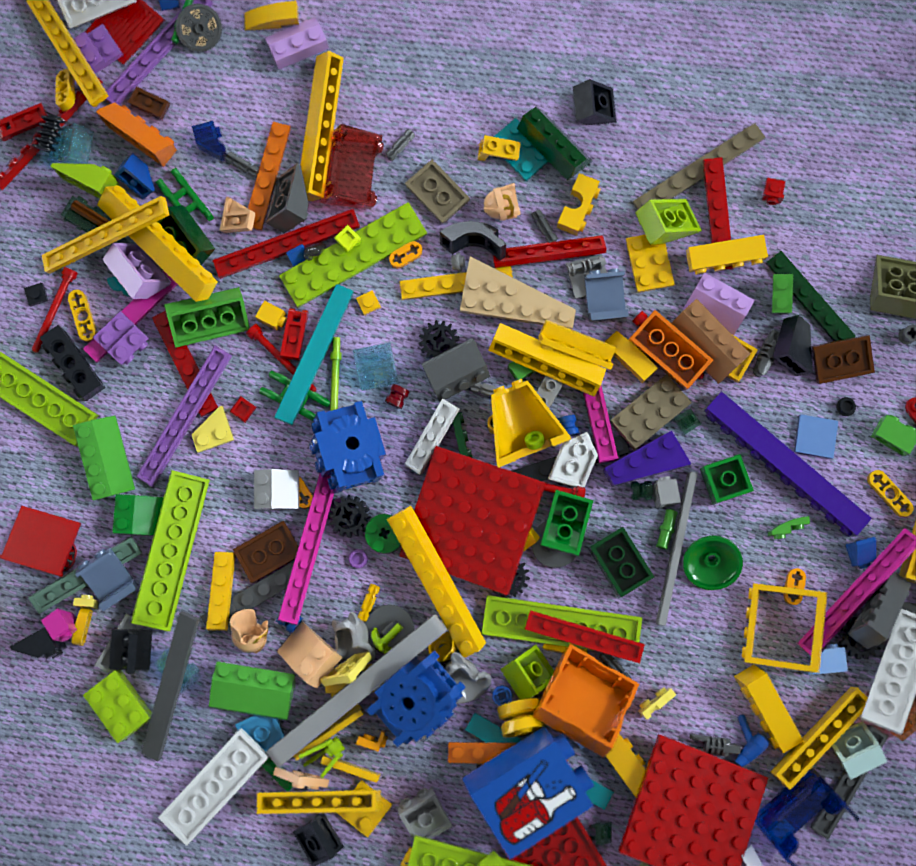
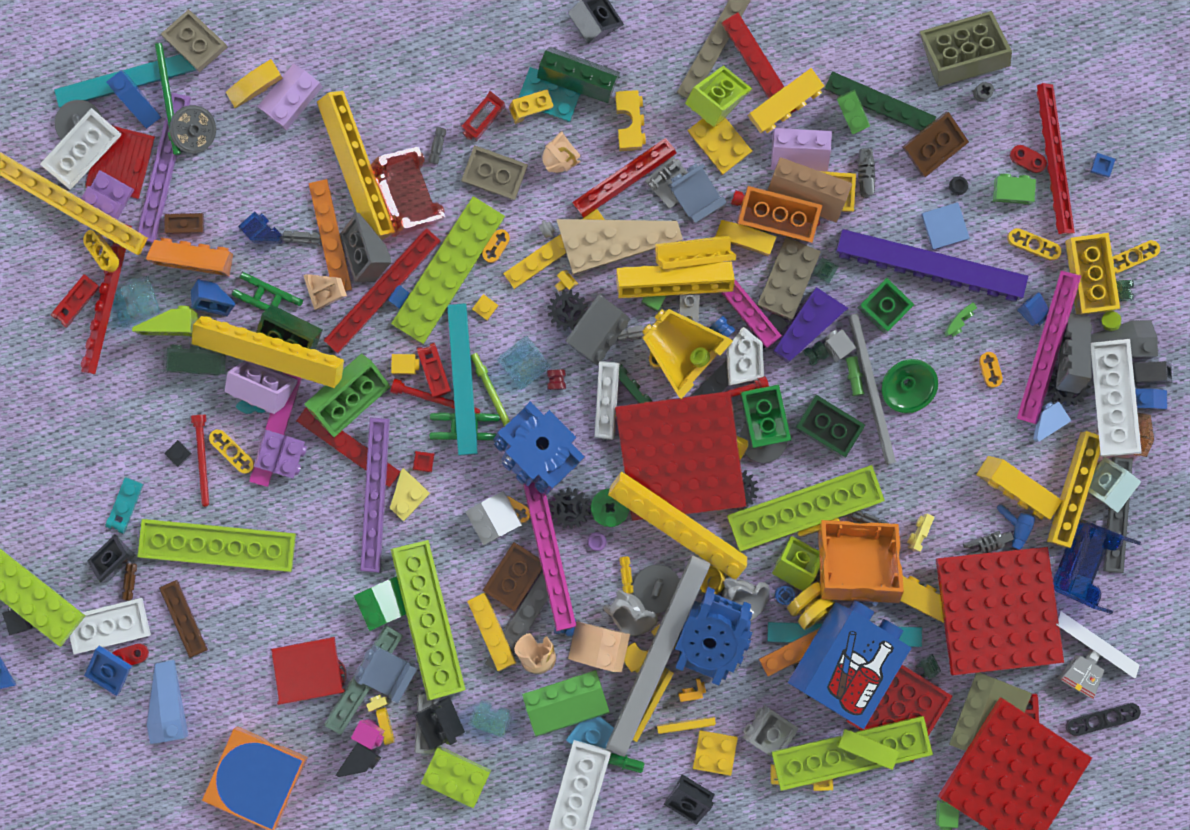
camera: 30 degrees left, 5 degrees up
(48, 133) = (112, 300): black piece -> none
(51, 342) = (275, 507): black brick -> none
(88, 213) = (200, 357): reddish brown axle -> none
(104, 457) = (324, 568): bright green slope -> none
(105, 234) = (217, 368): yellow plate -> none
(170, 685) = (494, 735): dark grey tile -> none
(300, 779) = (648, 756): light nougat wing -> none
(314, 250) = (412, 285): clear smoke arm -> none
(319, 802) = (674, 766): yellow brick -> none
(332, 746) = (661, 715): lime plant -> none
(347, 238) = (436, 258): neon yellow tile -> none
(348, 670) = (642, 642): light yellow wing -> none
(382, 643) = (658, 605): lime plant -> none
(451, 314) = (566, 280): none -> yellow tile
(452, 139) = (483, 116): none -> red window
(473, 234) = (548, 196): black arch -> none
(544, 226) = (608, 156): dark grey axle -> none
(584, 636) = (830, 507): red plate -> none
(749, 632) = (1029, 399): yellow window -> none
(773, 191) = (799, 18): red bracket -> none
(794, 346) = (887, 154): black slope -> none

